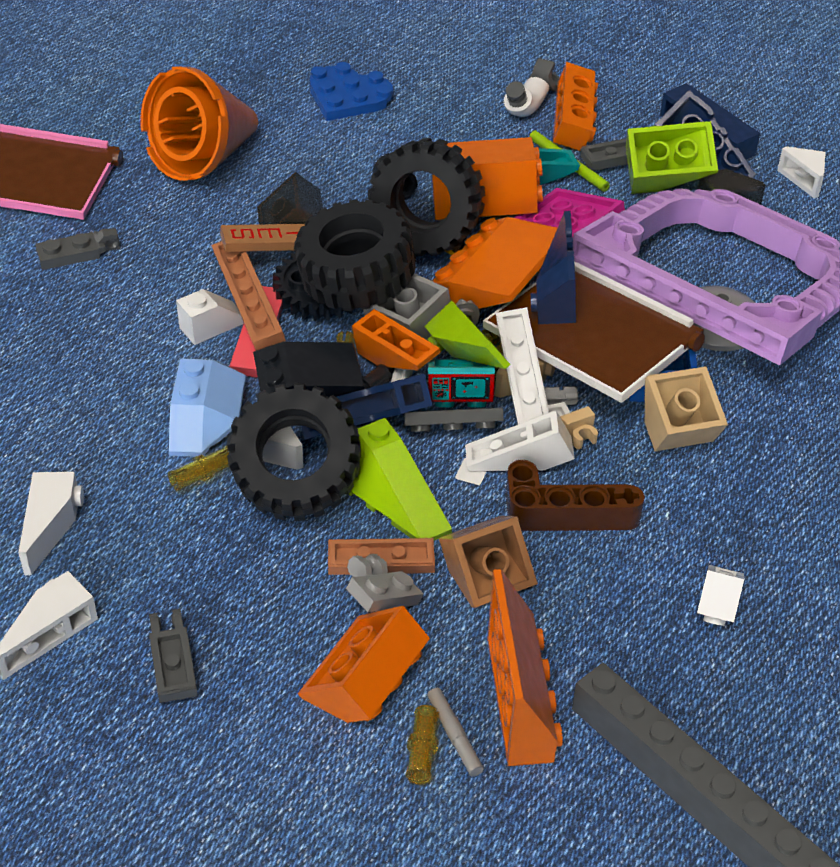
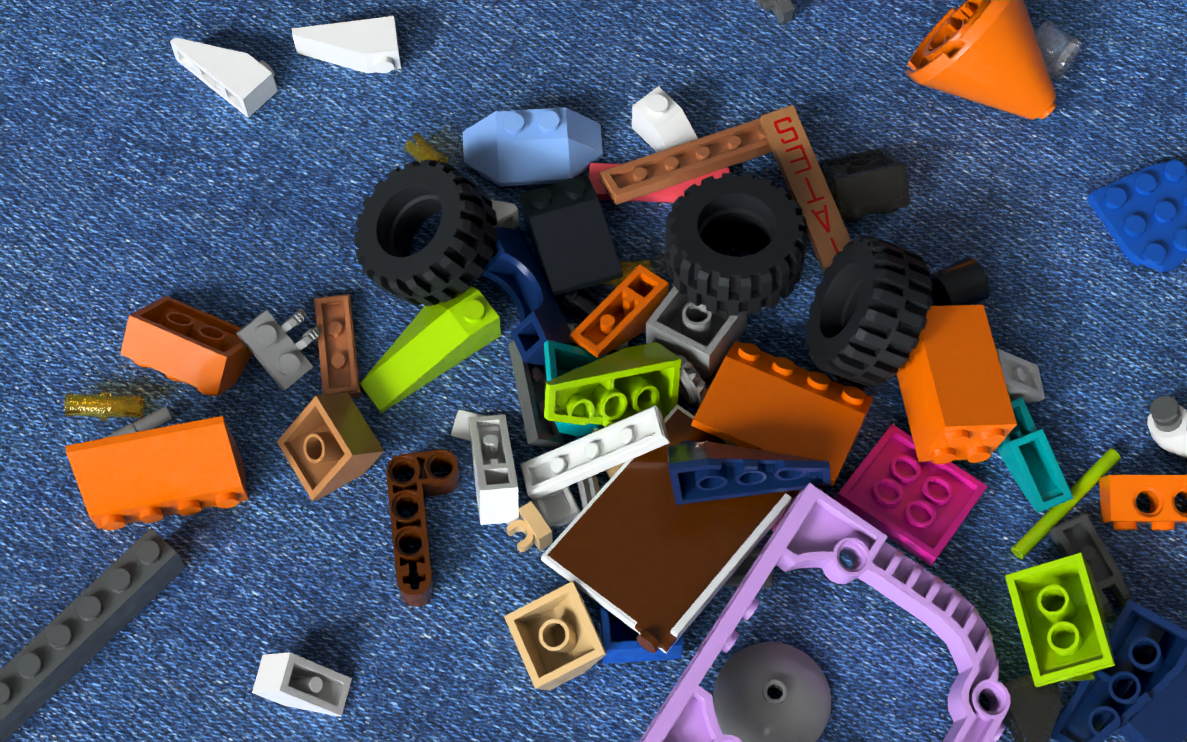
camera: 85 degrees right, 20 degrees up
(172, 659) = (198, 181): dark grey hinge -> none

